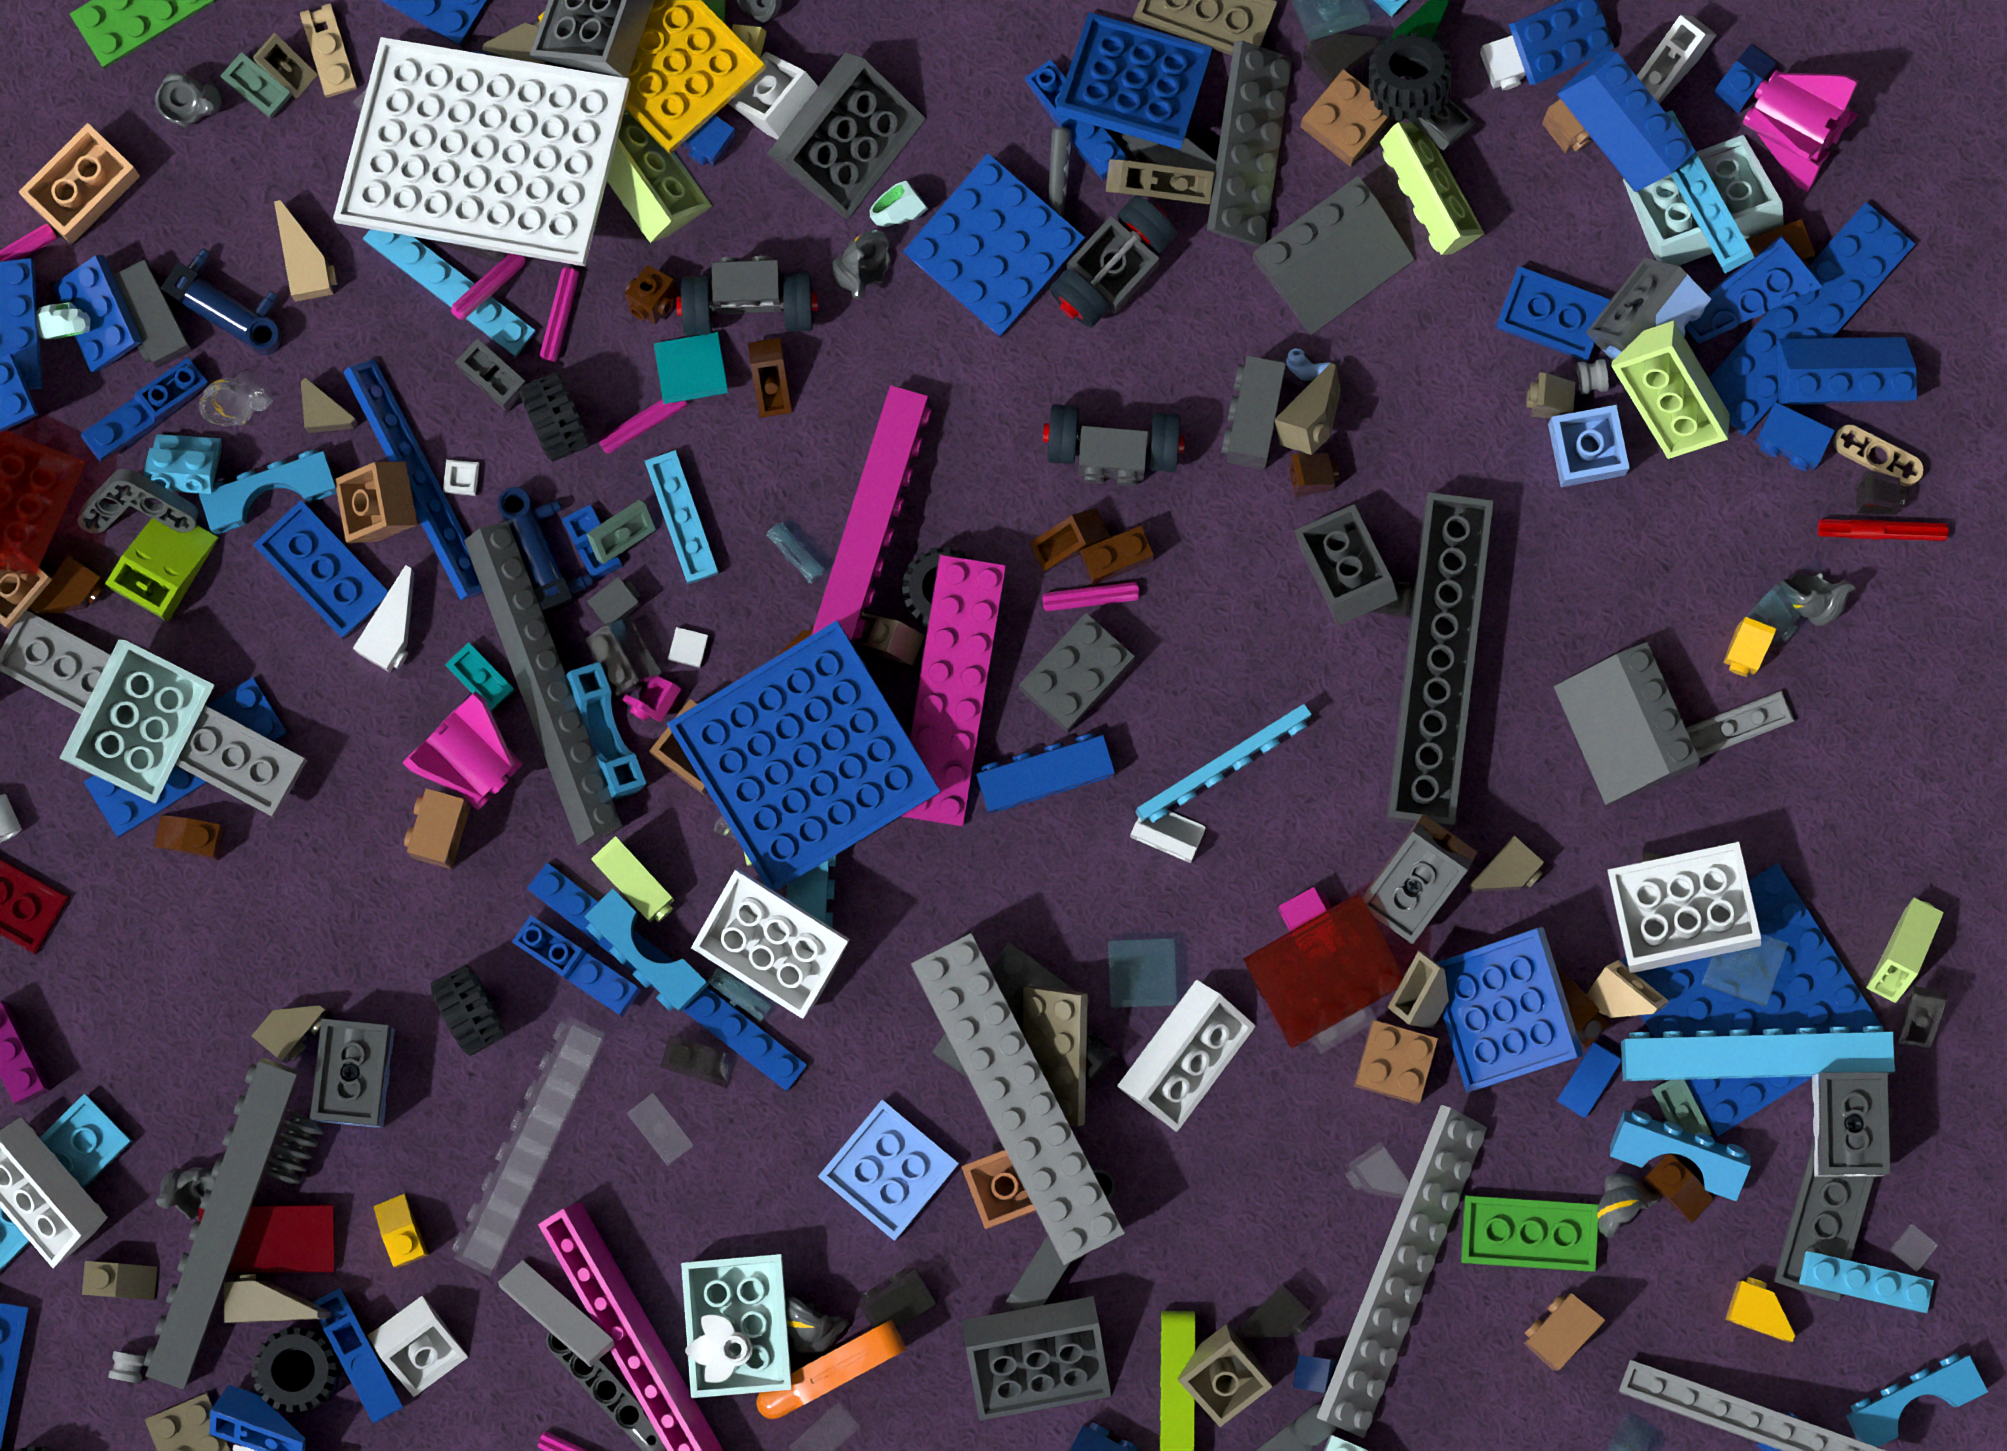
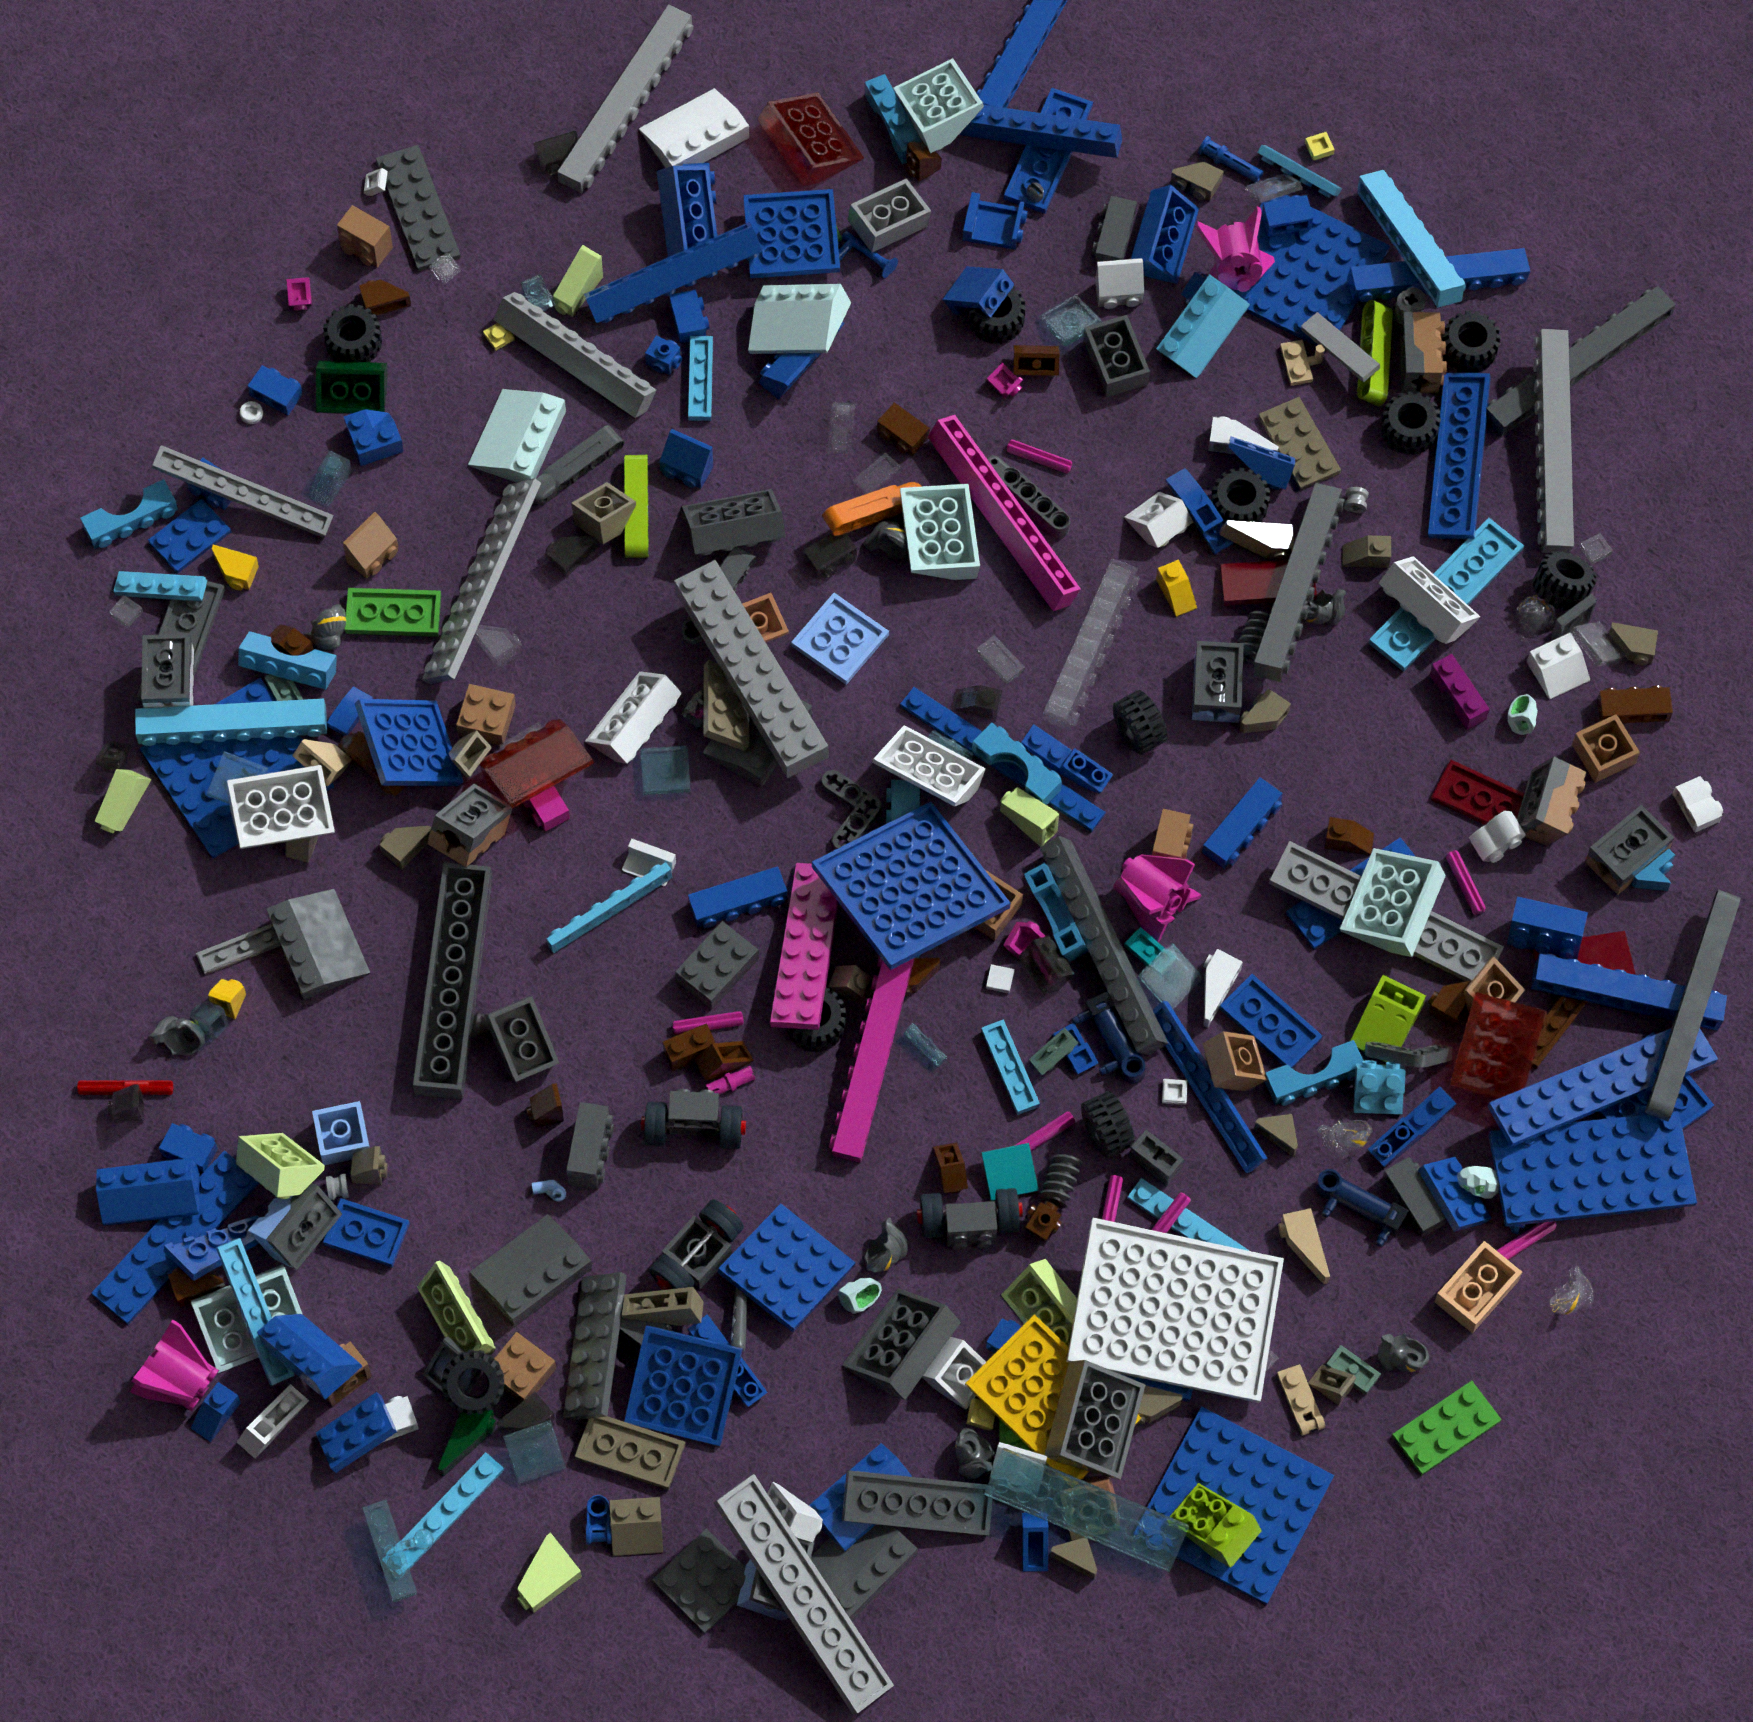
camera: 175 degrees right, 15 degrees down
(33, 768) = (1465, 882): none -> dark pink axle
(335, 861) = (1242, 823): none -> blue brick
(453, 636) = (1170, 976): none -> clear light blue plate
(556, 1313) = (1064, 536): light grey tile -> none
(615, 601) = (1055, 1004): dark grey brick -> none
(621, 352) = (1059, 1178): none -> dark grey piece
(714, 1348) = (953, 510): white plate -> none
(873, 914) = (857, 804): none -> dark grey beam
(1062, 509) = (731, 1081): none -> dark pink pin
(1311, 415) = (547, 1138): dark tan slope -> none
(1314, 1373) = (540, 517): dark blue brick -> none
(1826, 1369) = (189, 536): none -> blue plate
(1860, 436) = (123, 1130): tan beam -> none

